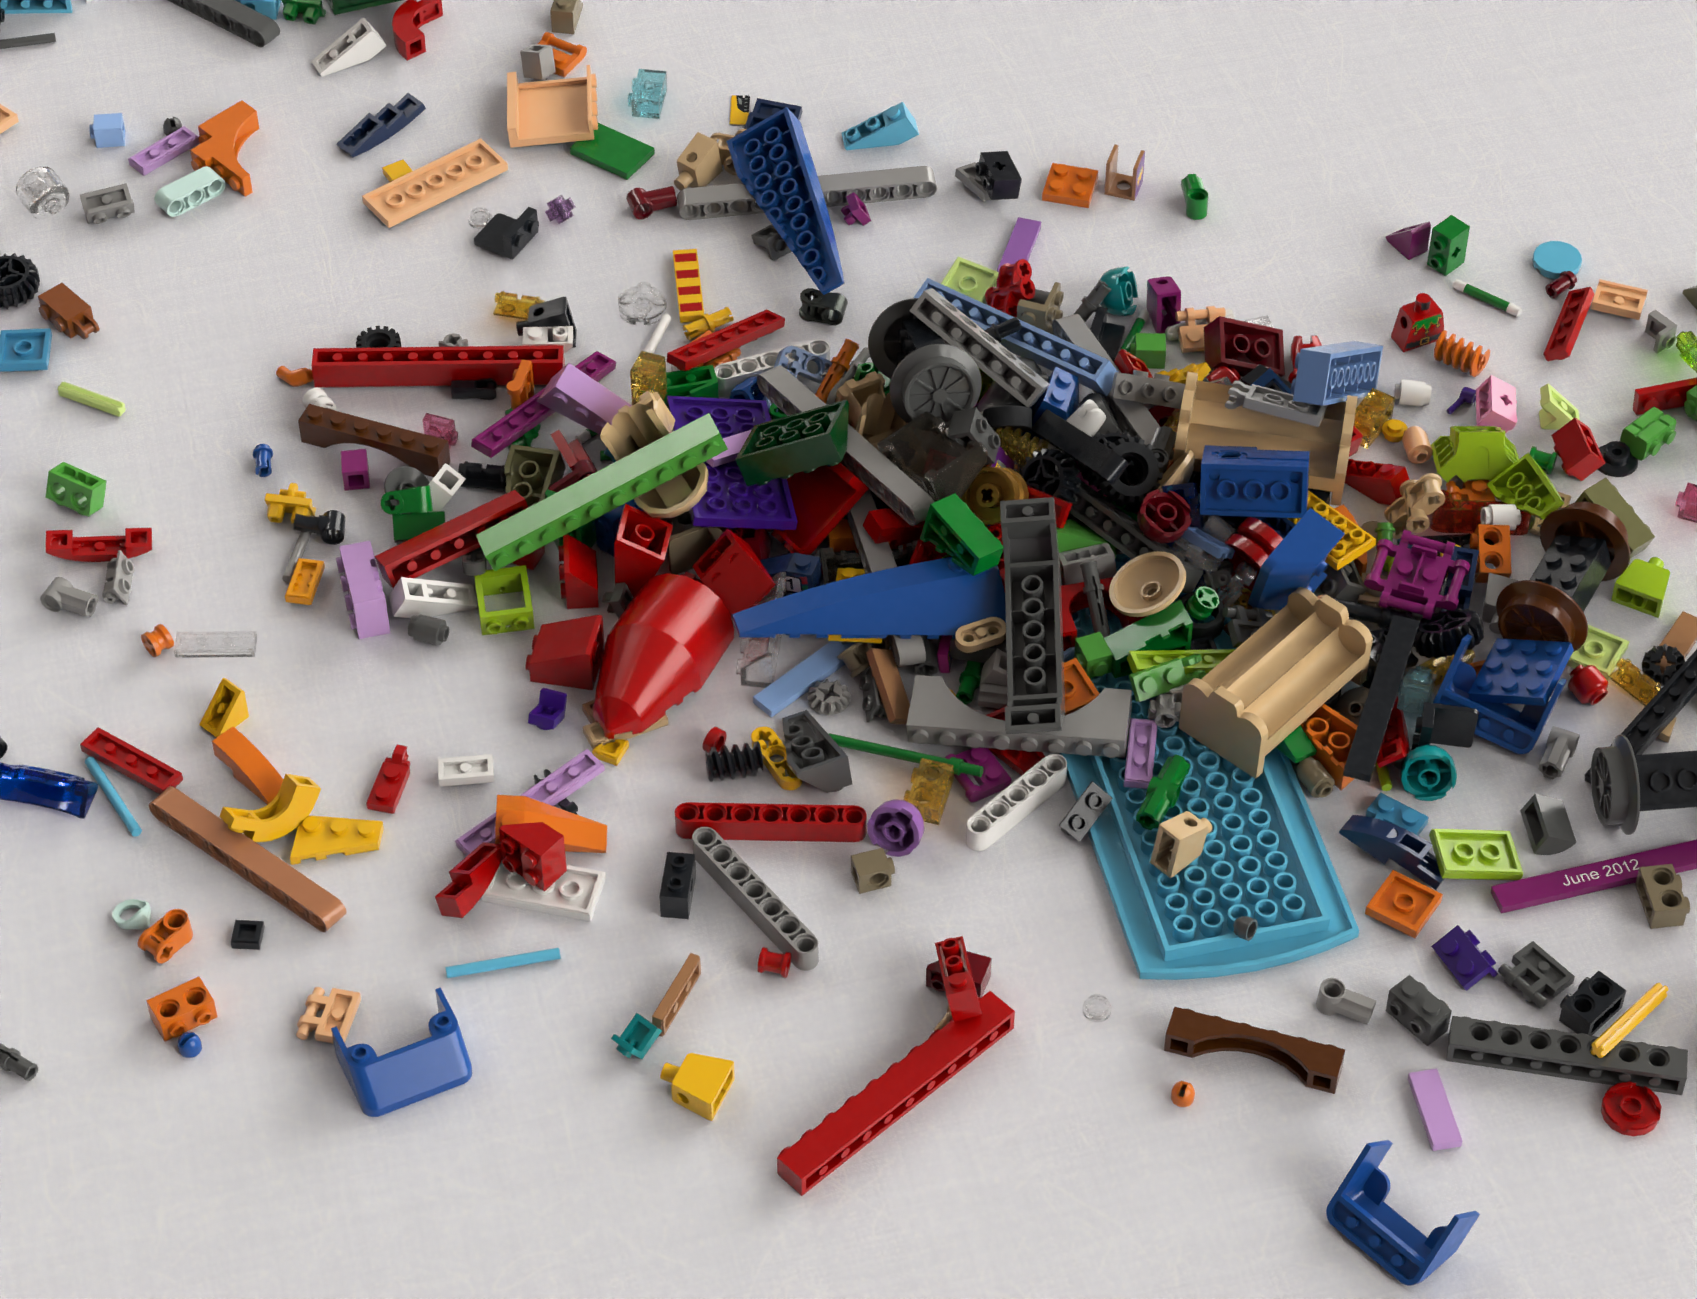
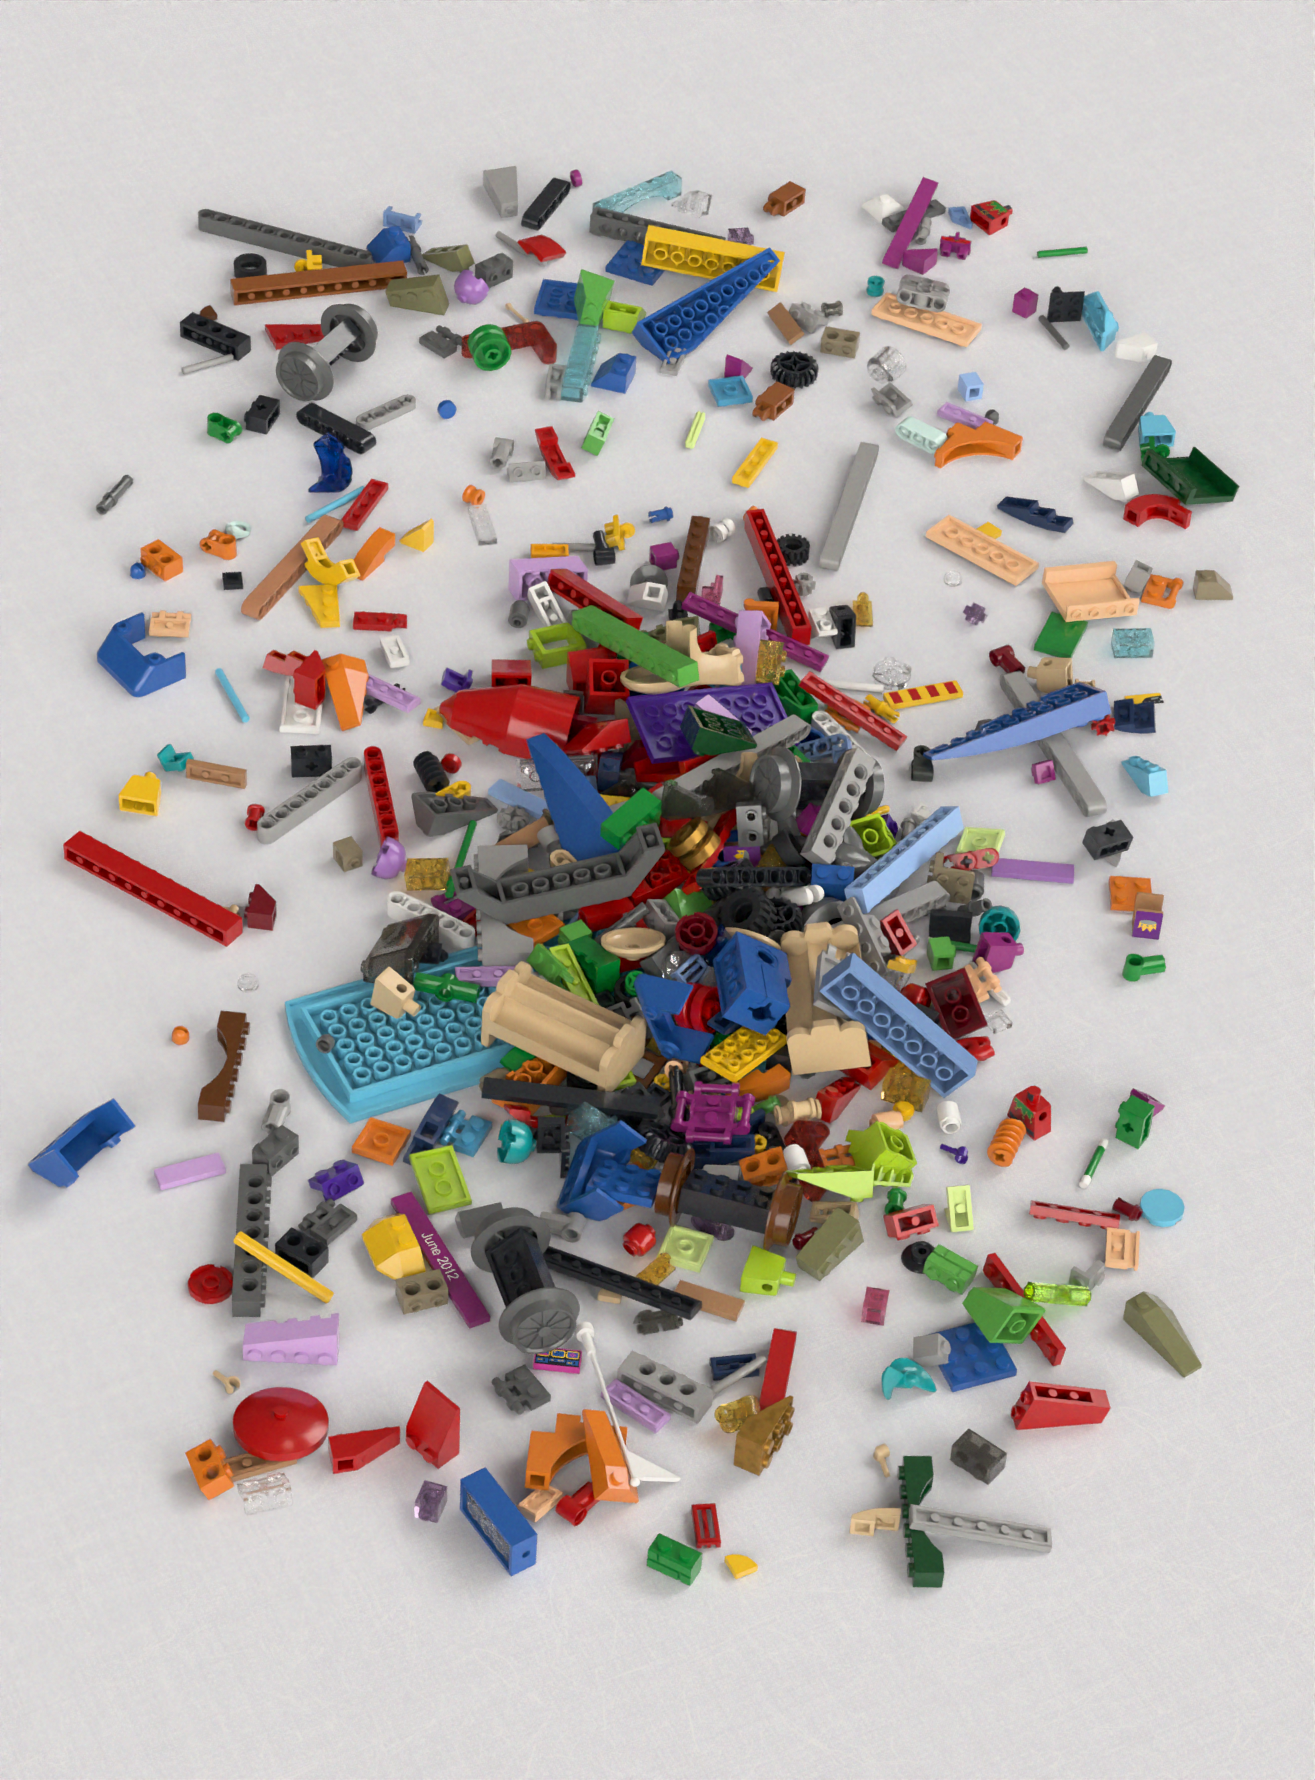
camera: 75 degrees right, 5 degrees down
(187, 352) = (754, 462): none -> yellow plate
(309, 281) = (849, 506): none -> light grey beam
(411, 500) = (627, 578): green piece -> none
(411, 525) = (618, 591): green tile -> none
(508, 235) = (938, 594): black bracket -> none
(958, 978) = (237, 895): red slope -> none
(1004, 329) = (889, 836): black axle -> none
(1090, 822) = (401, 947): none -> clear smoke windscreen
(1496, 404) = (956, 1160): bright pink brick -> none
(1581, 912) = (393, 1247): none -> yellow wedge
(1654, 656) = (680, 1281): black gear -> none

